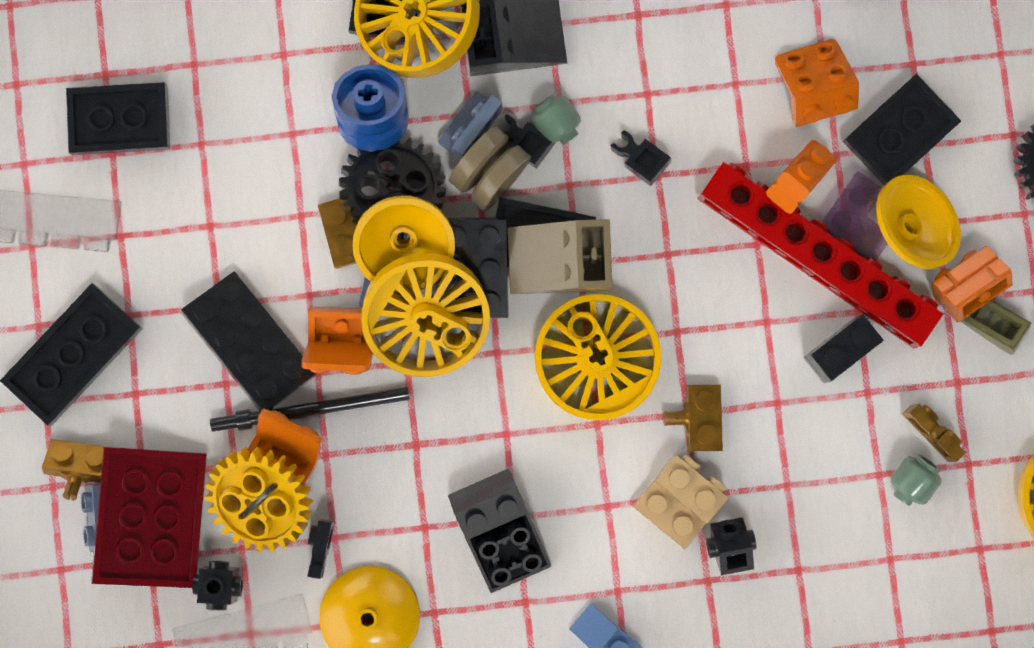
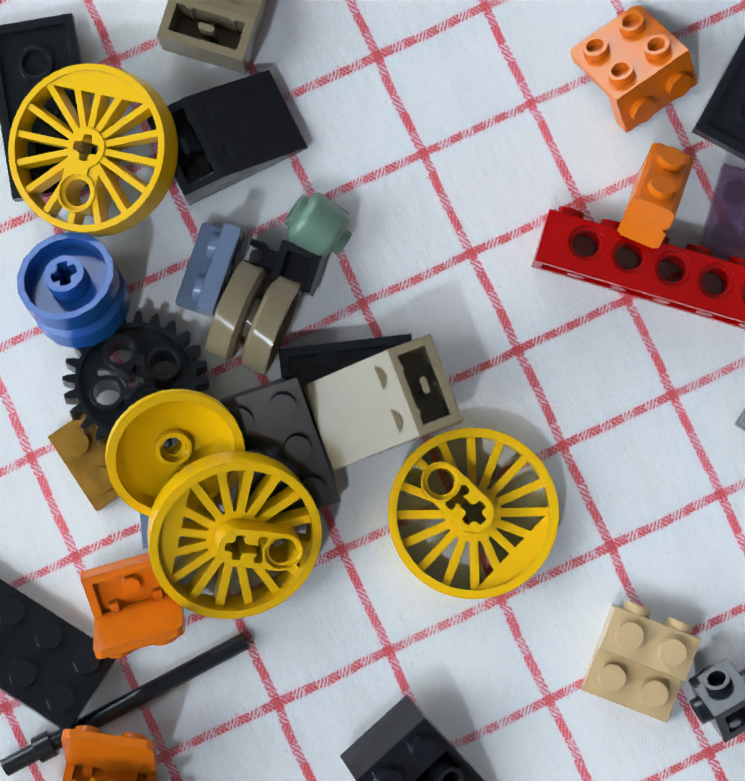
camera: 15 degrees left, 0 degrees up
(644, 159) = (448, 240): black plate -> none
(700, 418) = (630, 547): pearl gold plate -> none

